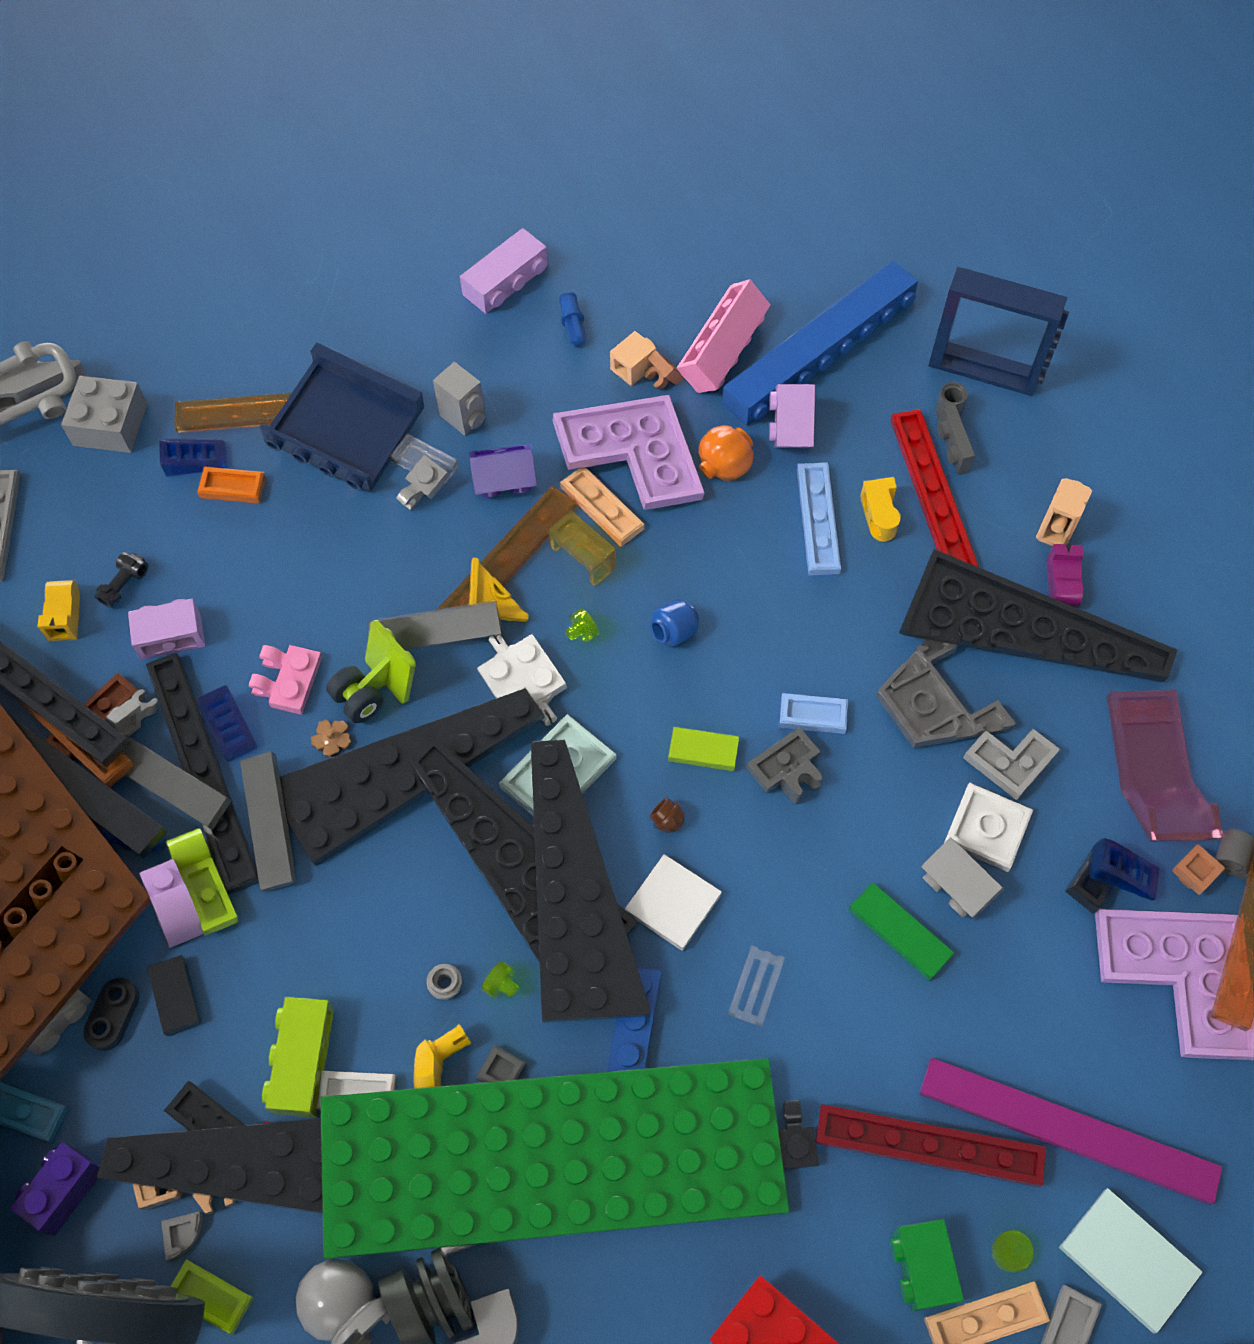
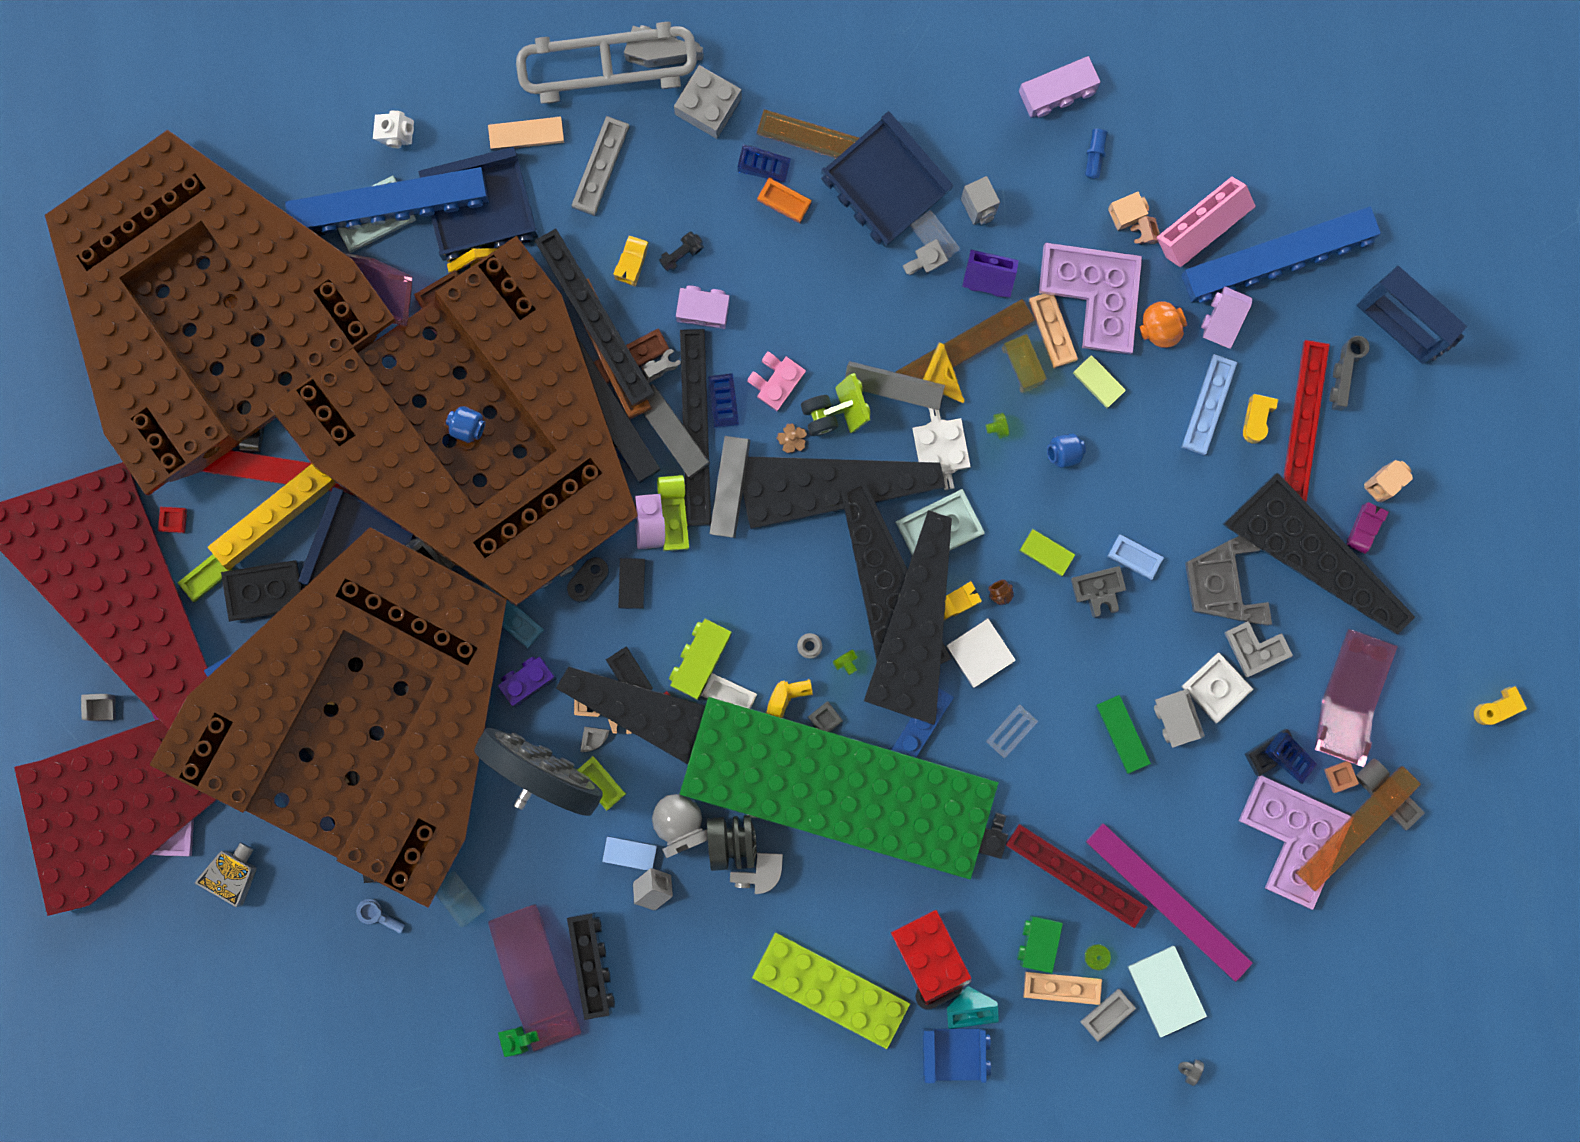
camera: 20 degrees right, 20 degrees up
(621, 844) = (961, 600): none -> yellow leg
(680, 539) = (1099, 381): none -> yellowish green tile

